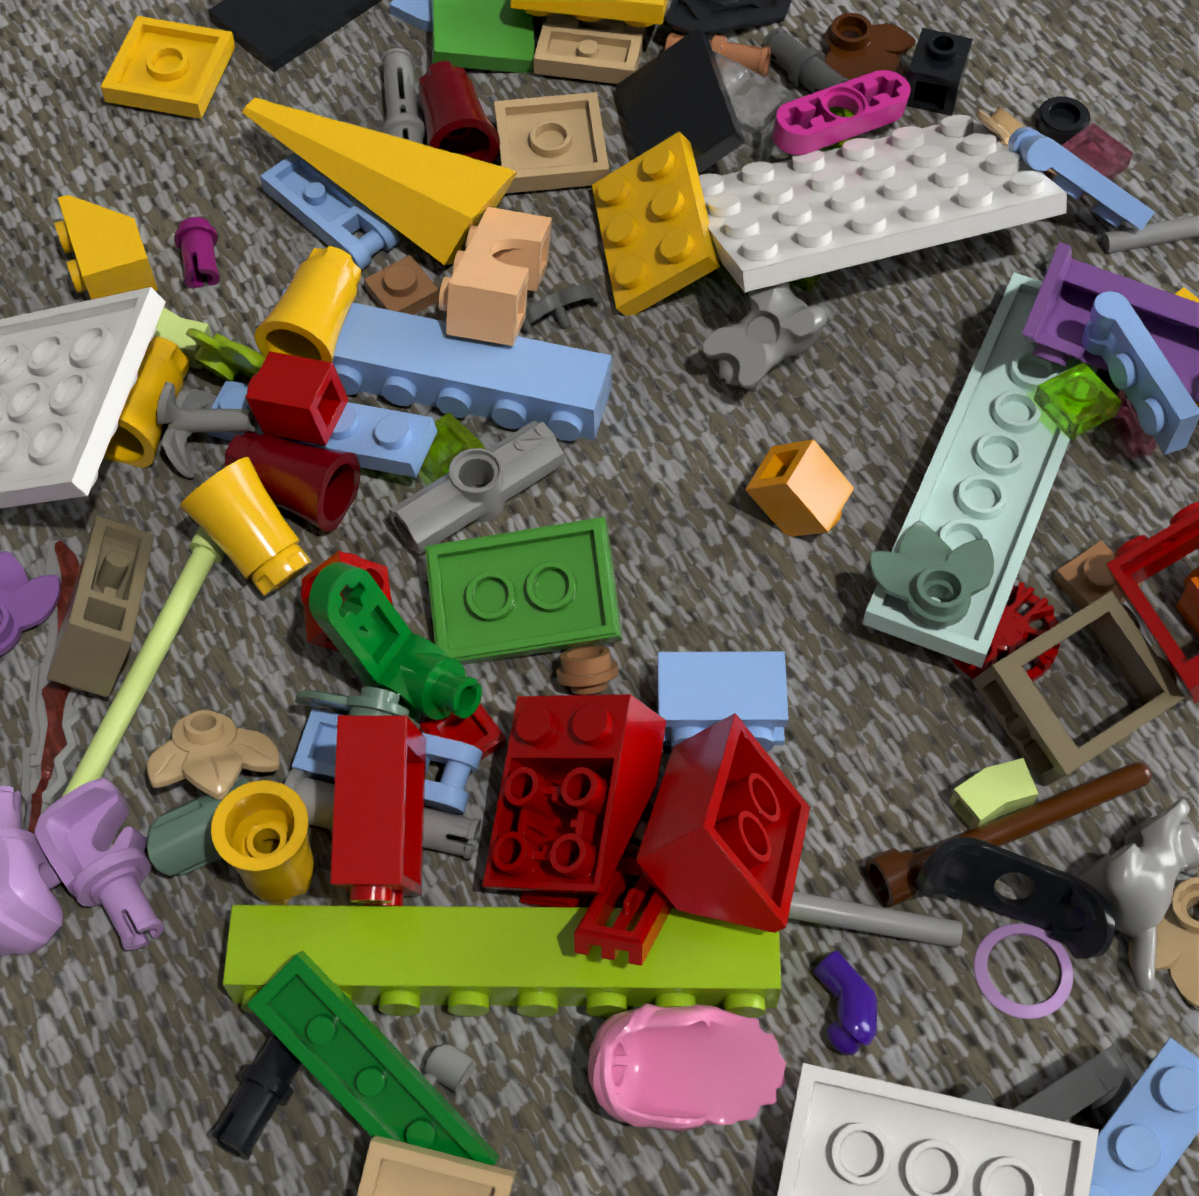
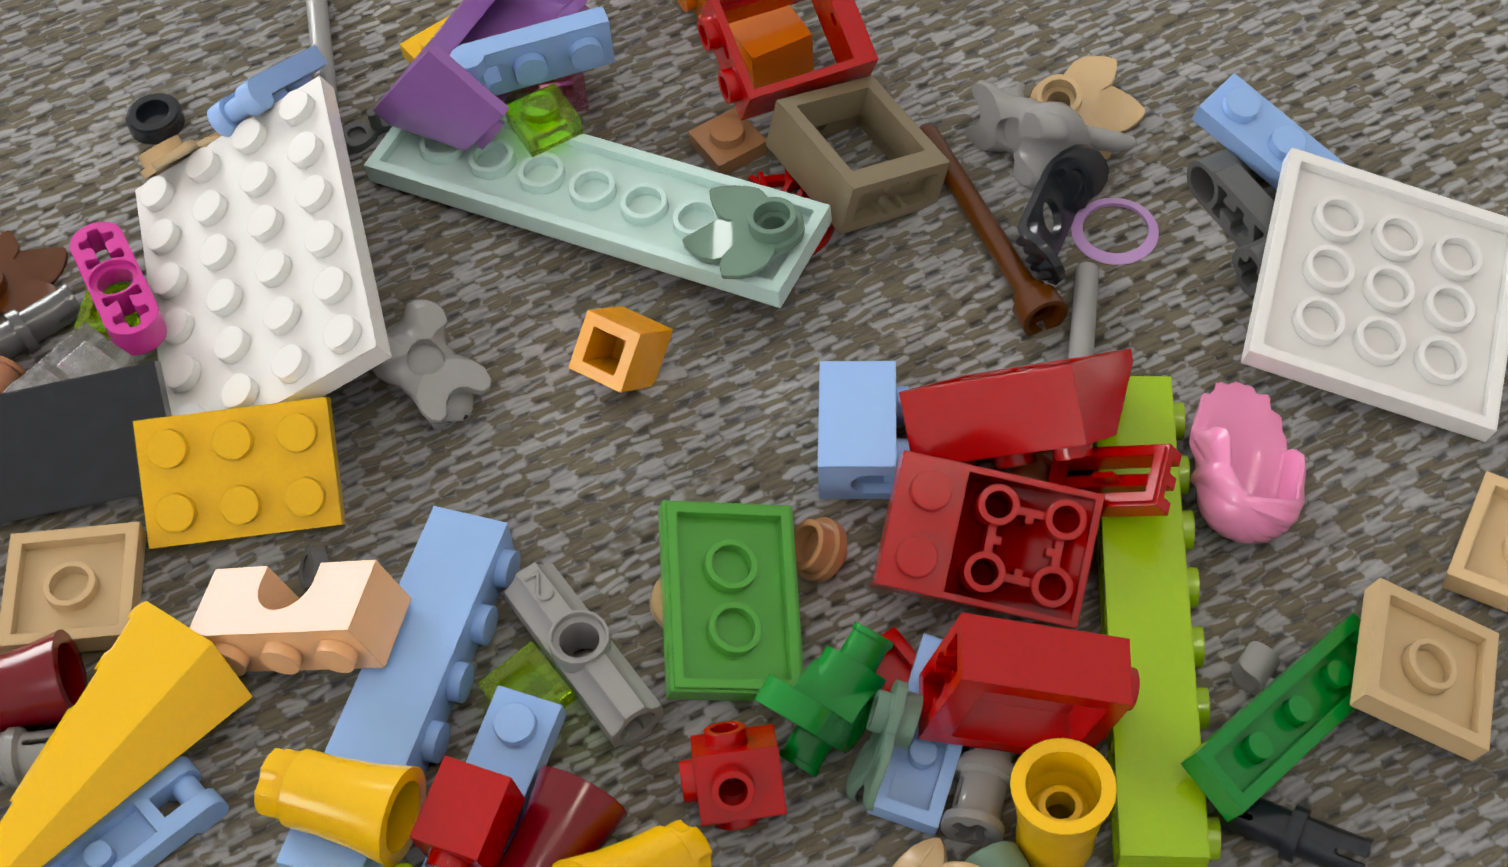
camera: 85 degrees left, 5 degrees down
(402, 287) = (255, 743): medium nougat plate -> none
(855, 1008) = (1155, 344): dark purple arm -> none
(937, 71) = (63, 202): black brick -> none
(994, 793) = (953, 231): yellowish green piece -> none
(1100, 151) = (210, 87): clear pink plate -> none

